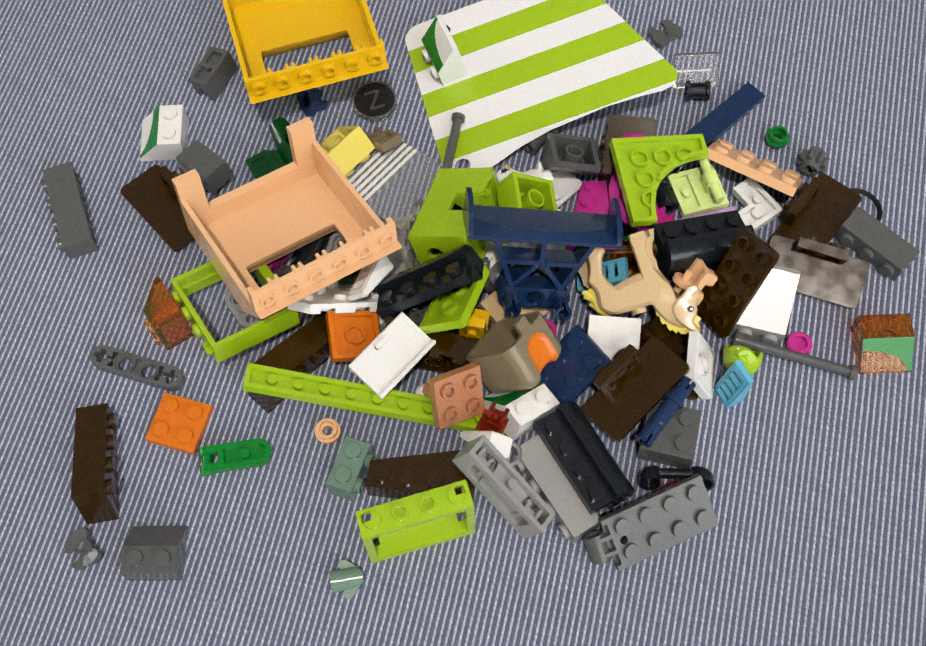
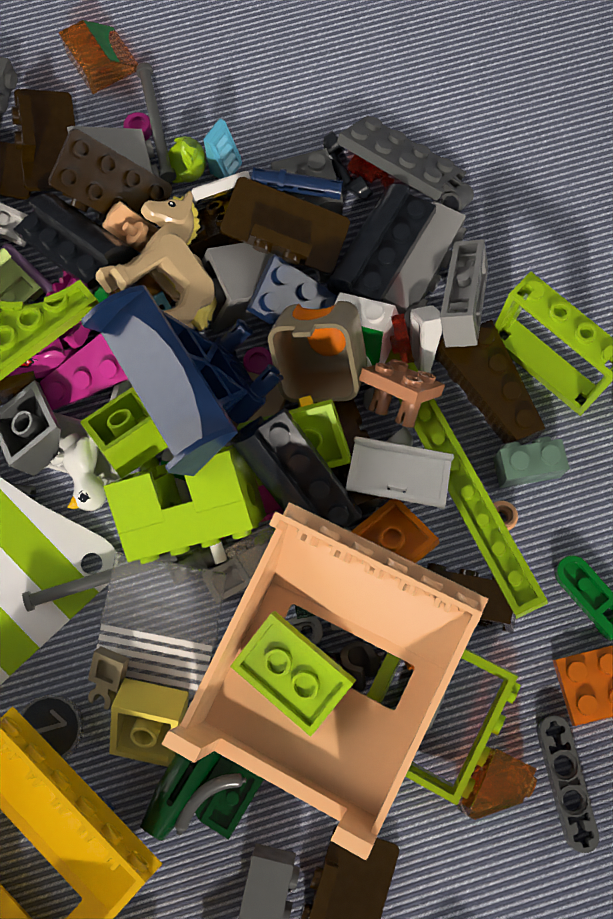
camera: 120 degrees left, 10 degrees up
(278, 154) = (202, 793): none -> dark grey piece
(305, 218) = (292, 673): none -> lime plate

